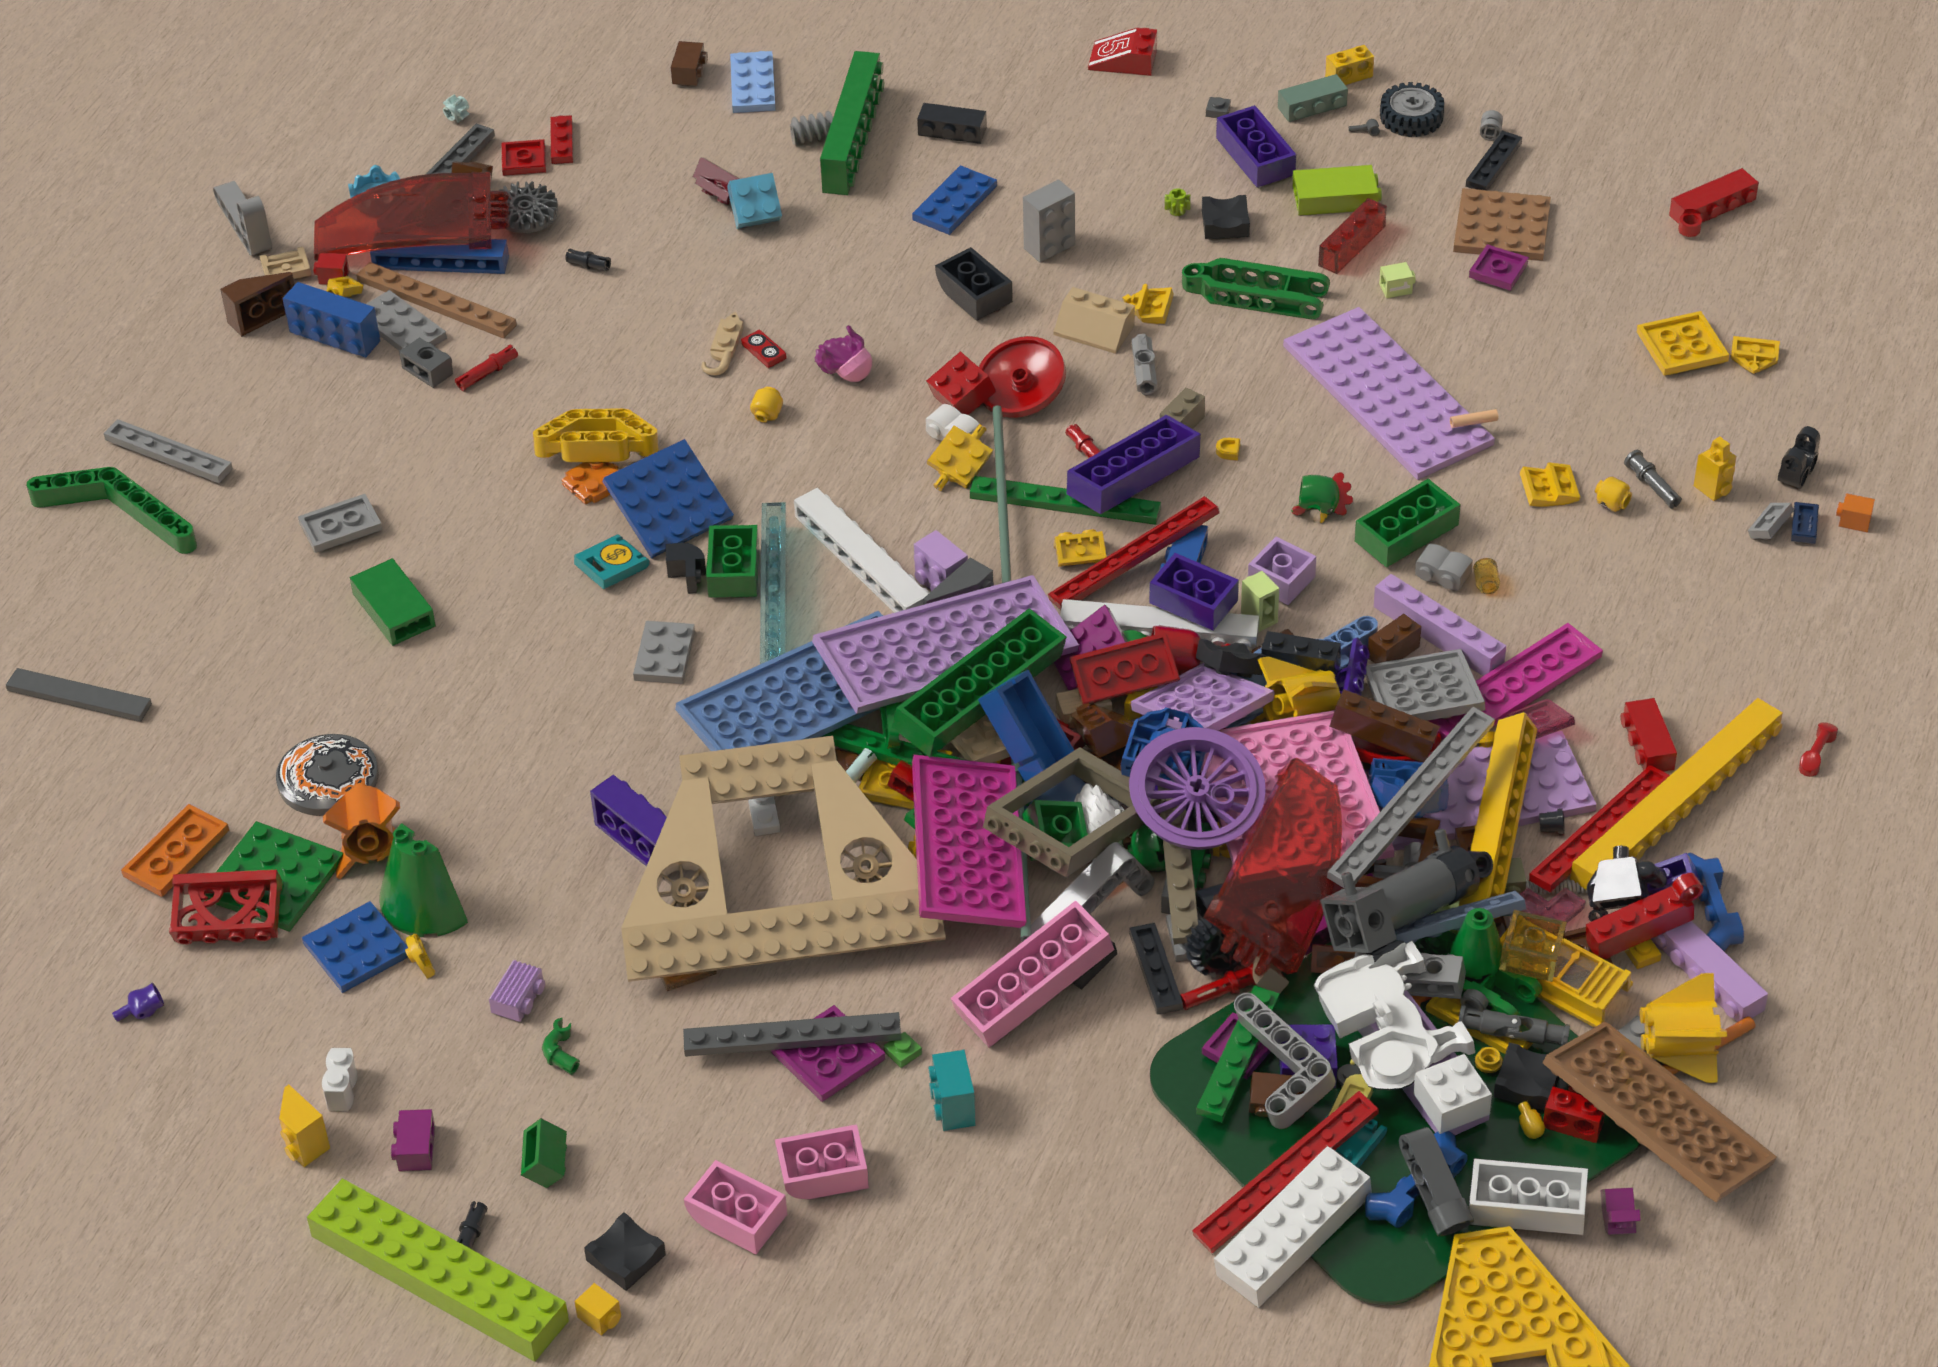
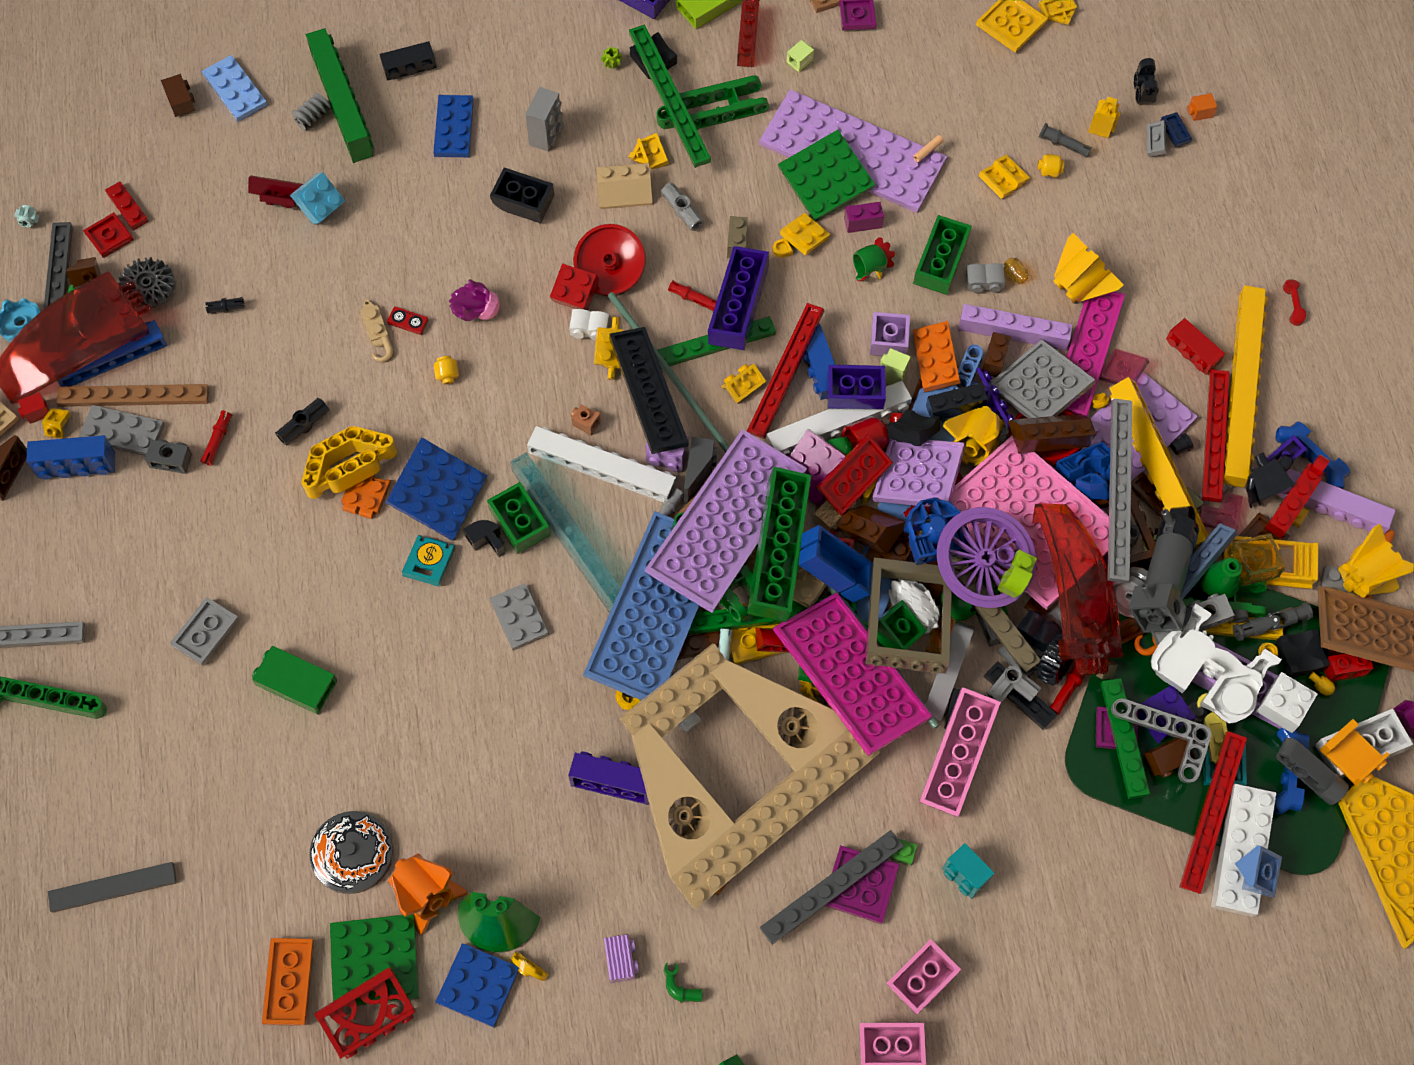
camera: 35 degrees left, 20 degrees up
(582, 387) = (293, 428): none -> black piece
(876, 504) = (589, 422): none -> nougat brick
(957, 497) = (648, 390): none -> black plate
(1140, 942) = (1022, 685): none -> light grey piece
(1207, 254) = (670, 96): none -> green plate
(1212, 810) = (1018, 576): none -> lime brick
(1264, 444) = (804, 234): none -> yellow plate
(1285, 1236) = (1260, 871): none -> medium blue slope
(1322, 609) = (936, 356): none -> orange plate
(1332, 398) = (826, 175): none -> green plate
(1345, 454) = (863, 217): none -> magenta brick
(1498, 1182) = (1353, 754): none -> light orange panel
(1558, 601) = (1083, 272): none -> yellow brick

